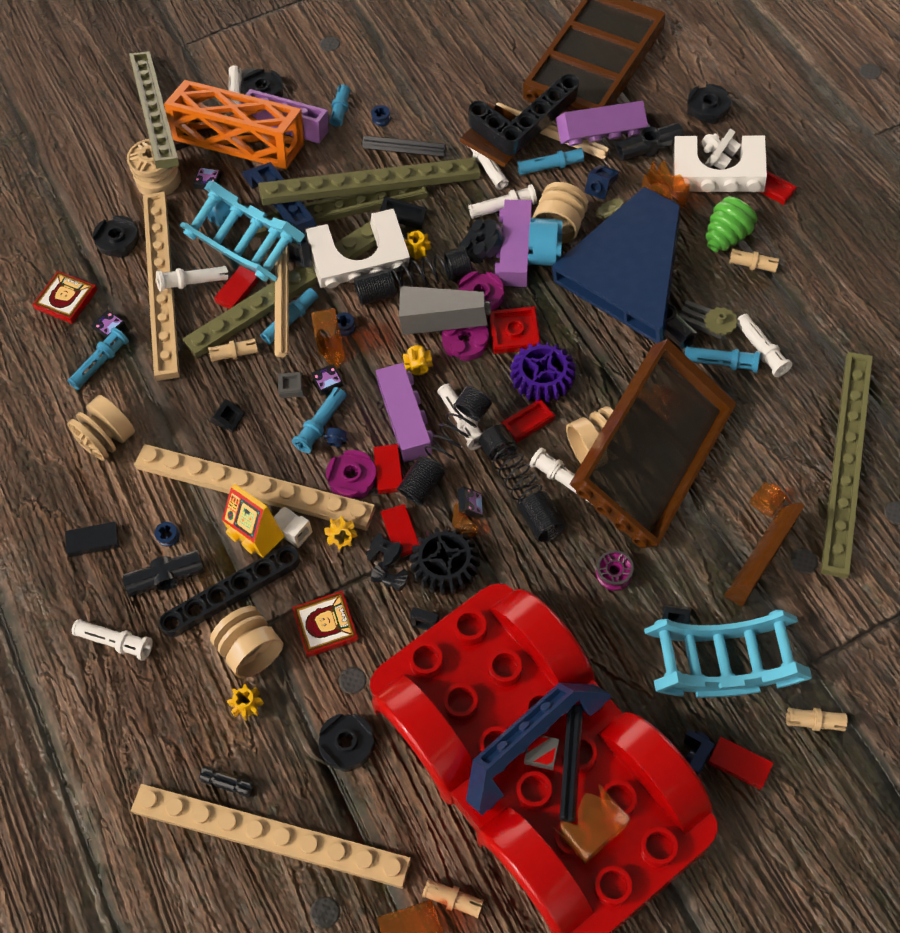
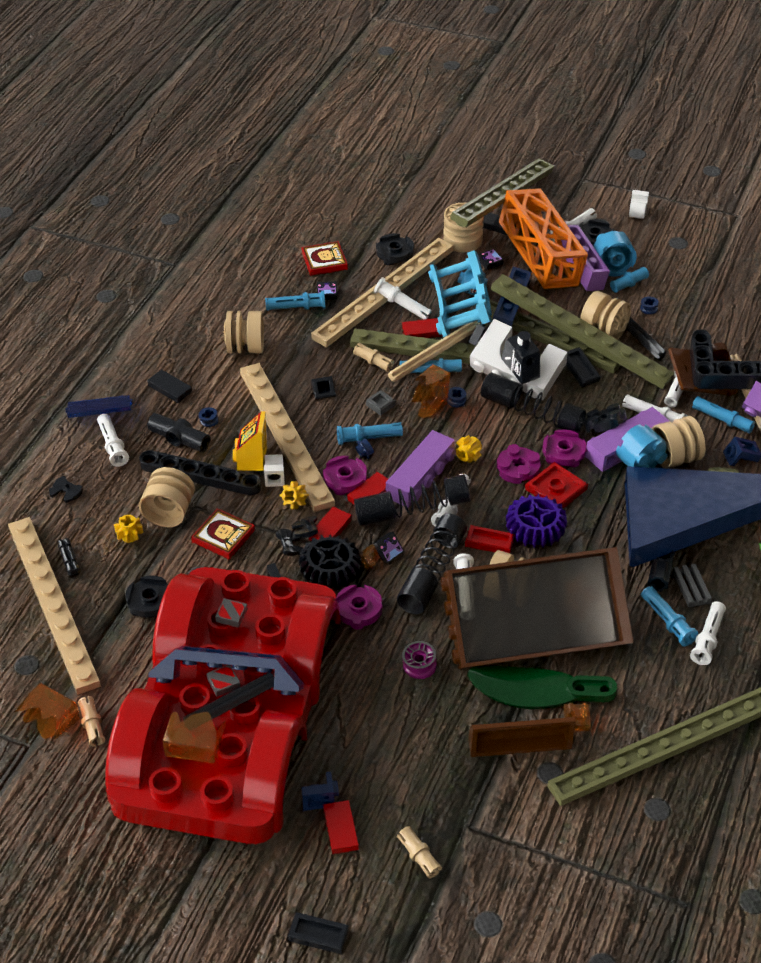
camera: 45 degrees right, 15 degrees down
(56, 620) = (98, 406): none -> clear blue piece
(124, 724) = (72, 491): none -> black piece
(262, 33) = (638, 204): none -> white leg
(306, 87) = (615, 252): none -> dark azure brick
(327, 379) = (405, 415): tile -> none
(374, 151) = (607, 313): none -> tan wheel
(374, 243) = (522, 357): none -> black torso
(417, 244) = (562, 389): yellow gear -> none
(441, 309) = (519, 431): slope -> none
(466, 688) = (231, 612): none -> dark grey tile
(514, 559) = (363, 616): none -> magenta plate
(676, 613) = (418, 720): black slope -> none
(717, 502) = (540, 687): none -> dark green plant
(720, 321) = (699, 593): olive piece -> none
(727, 684) = (432, 804): medium azure fence -> none
(836, 861) = (318, 933): none -> black tile

